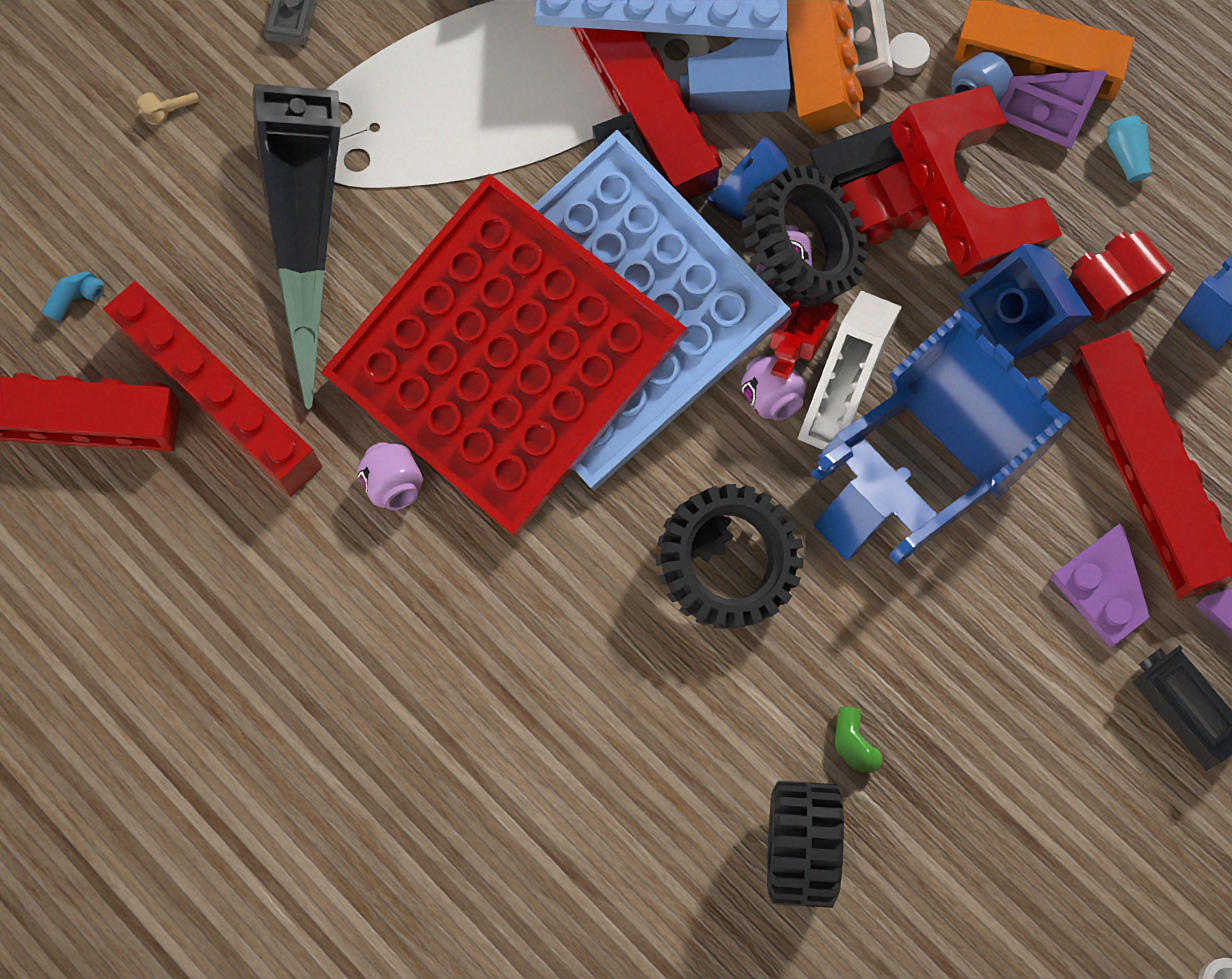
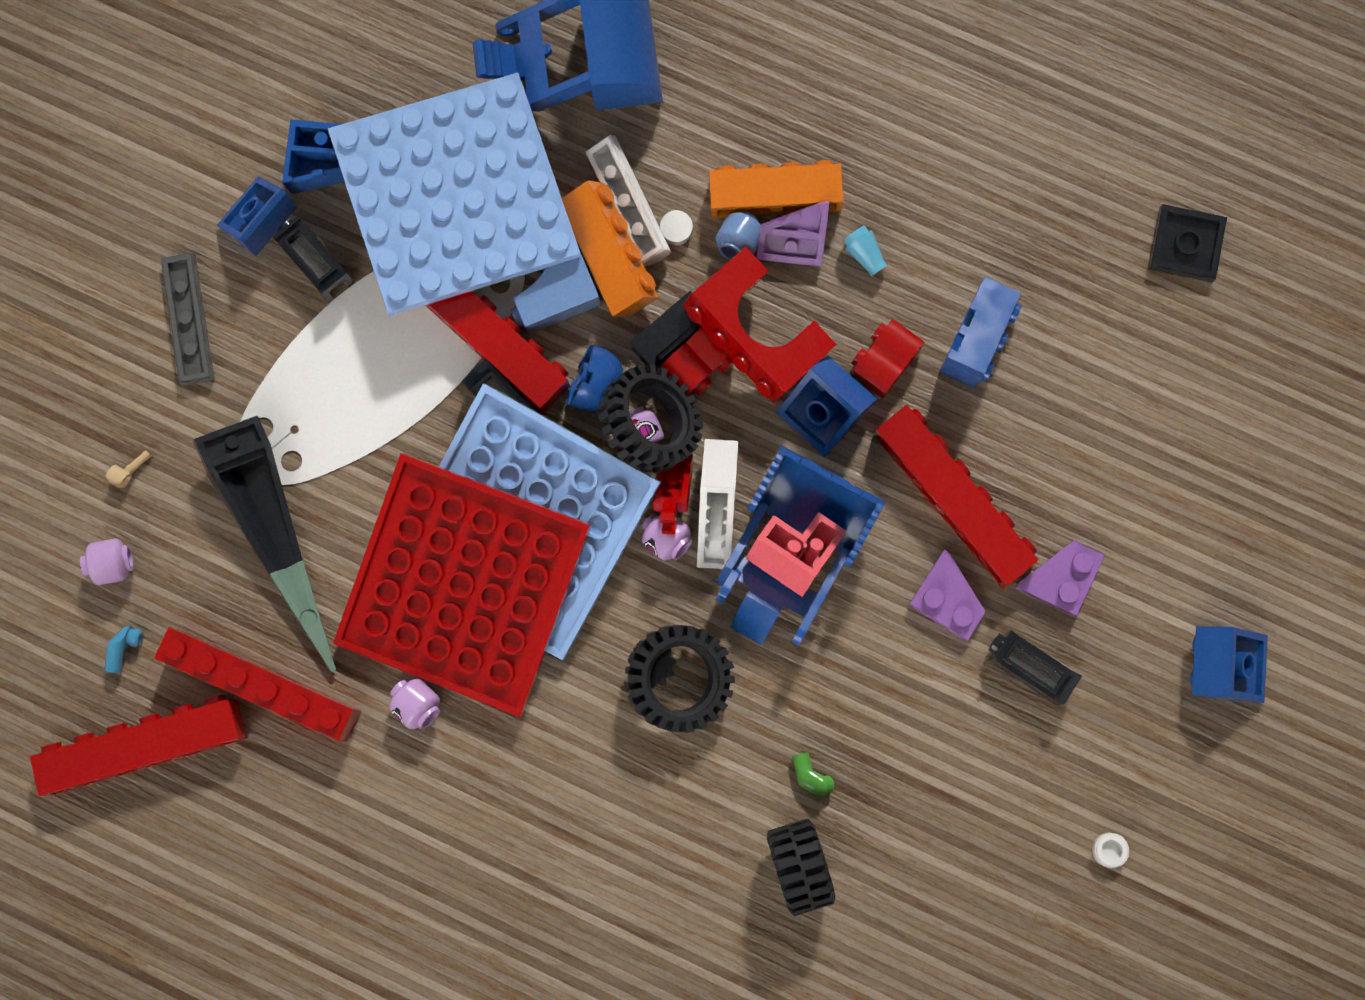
camera: 15 degrees left, 10 degrees up
(97, 191) = (107, 561): none -> lavender head
(928, 454) = (792, 556): none -> coral brick

